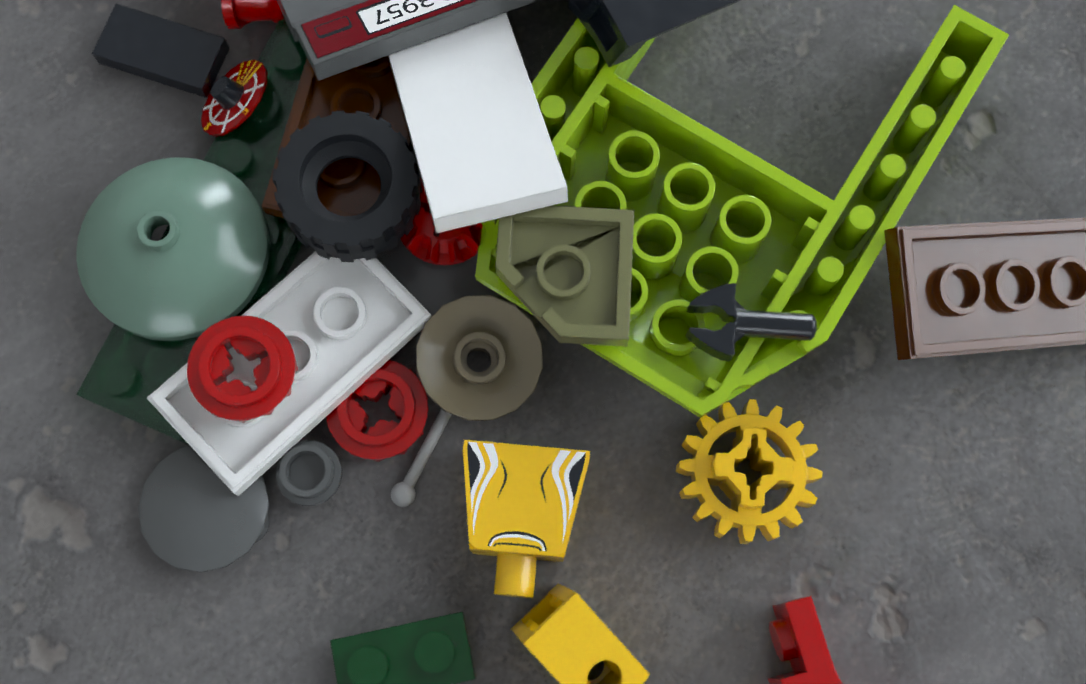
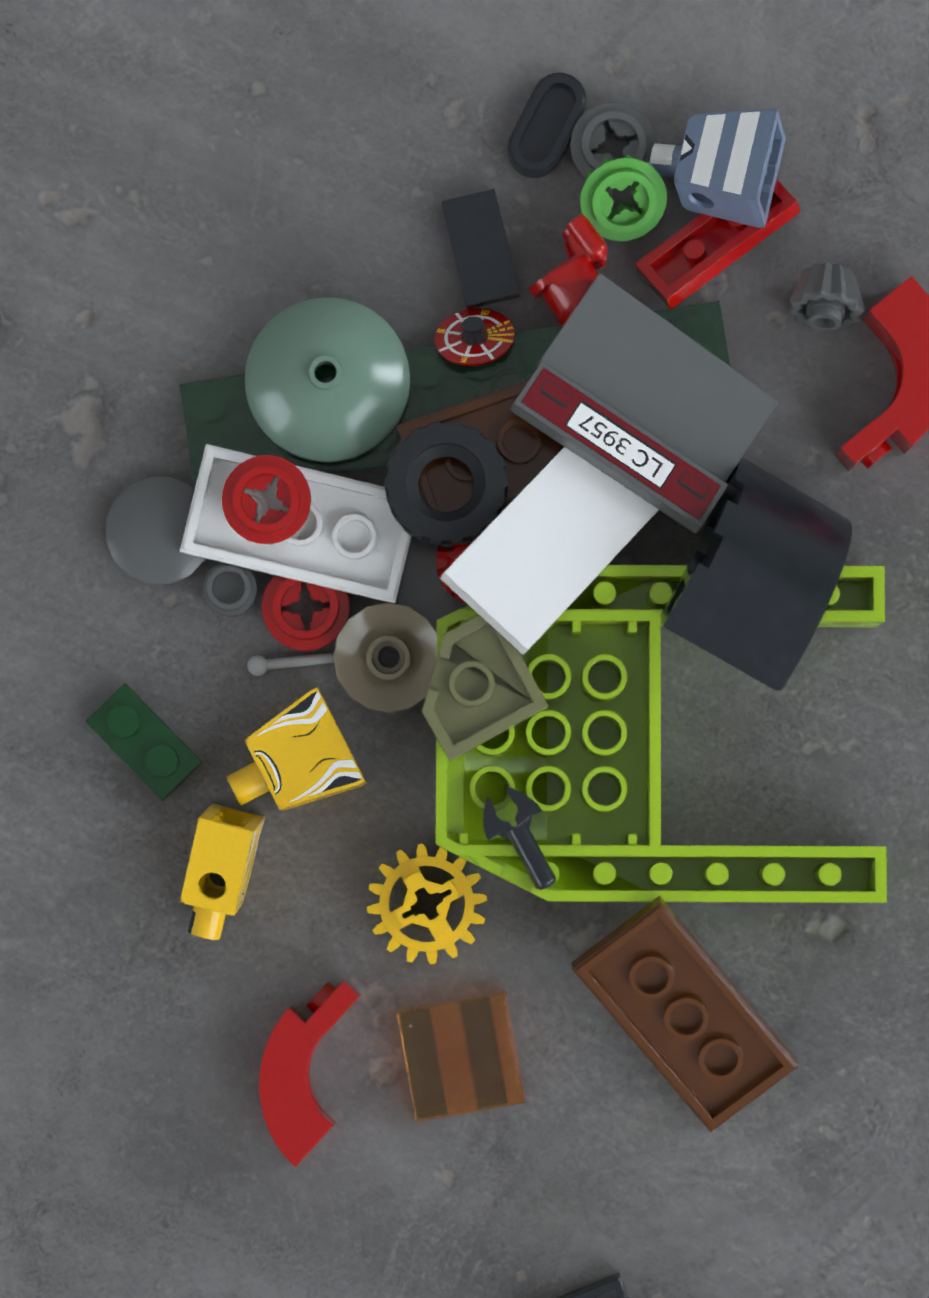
camera: 60 degrees right, 10 degrees up
(920, 537) = (461, 1056): none -> clear orange tile

